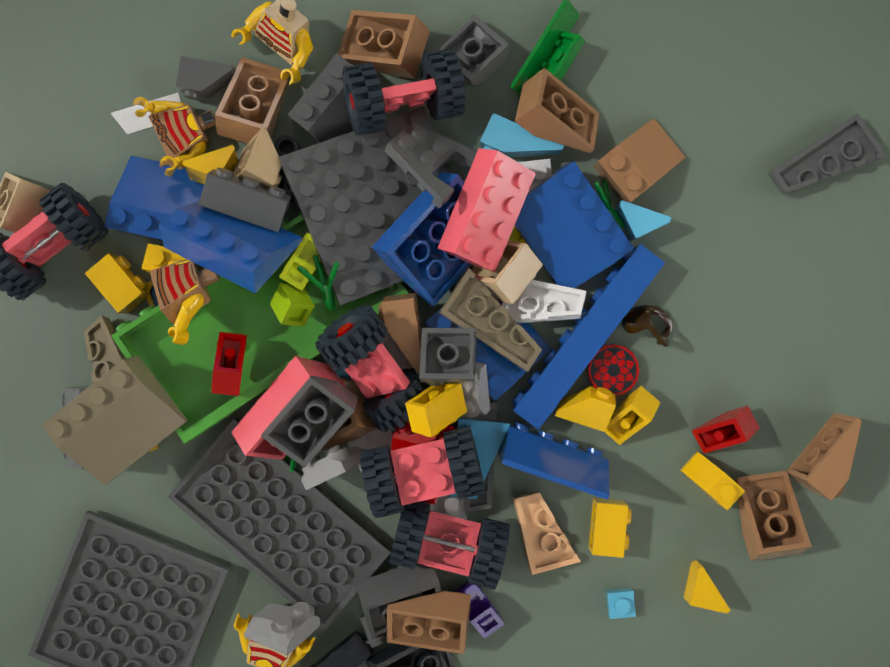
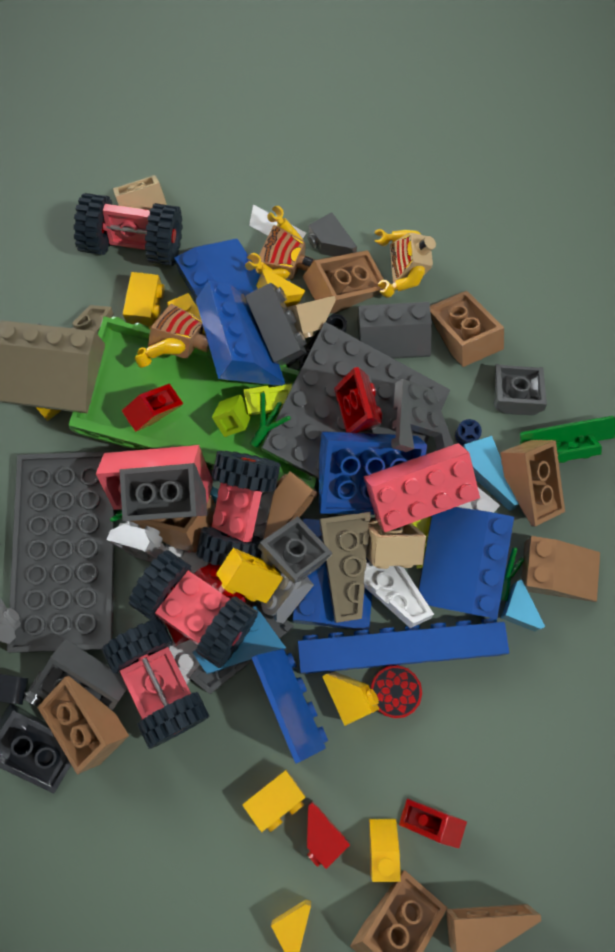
camera: 50 degrees right, 15 degrees down
(375, 197) = (358, 402): none -> red slope
(440, 86) = (471, 383): black plate -> none
(471, 122) = (471, 428): none -> dark blue wheel
(482, 612) = (122, 761): slope -> none
(541, 536) = (221, 755): light nougat wing -> none
(620, 603) = (223, 870): medium azure plate -> none
(632, 415) = (375, 736): yellow slope -> none
(640, 319) = (452, 674): dark brown piece -> none
(667, 515) = (323, 838): none -> red slope

